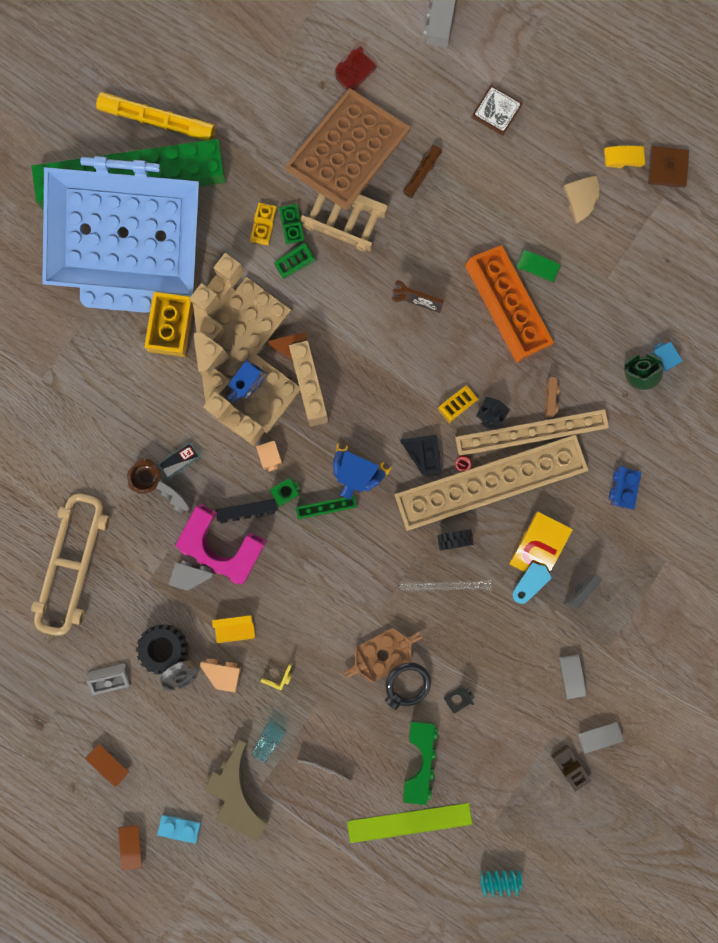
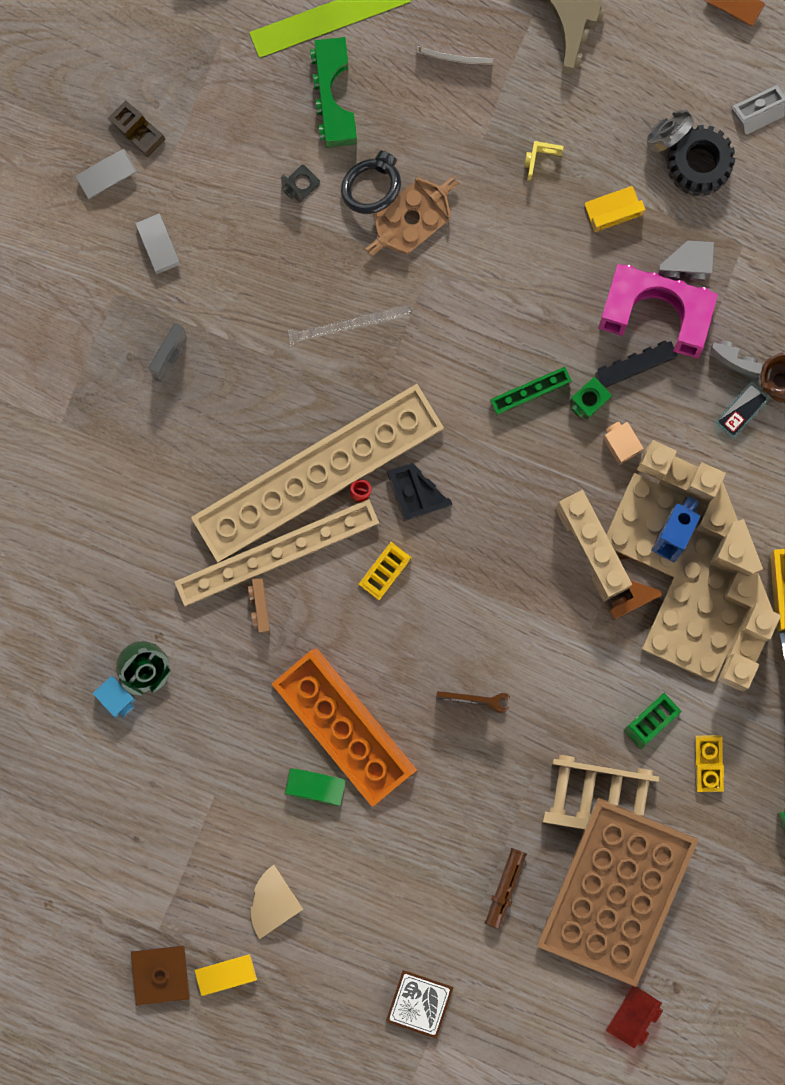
camera: 165 degrees right, 0 degrees up
(222, 676) = (614, 144): light nougat slope -> none
(270, 738) = (533, 80): clear light blue piece -> none
(291, 224) = (670, 771): green slope -> none
(356, 472) = (501, 443): blue torso -> none
(455, 539) = (349, 383): black tyre -> none
(492, 413) = (335, 565): black brick -> none
(531, 582) = (236, 352): medium azure piece -> none
(541, 543) = (234, 402): yellow slope -> none
(625, 488) = (135, 507): blue bracket -> none

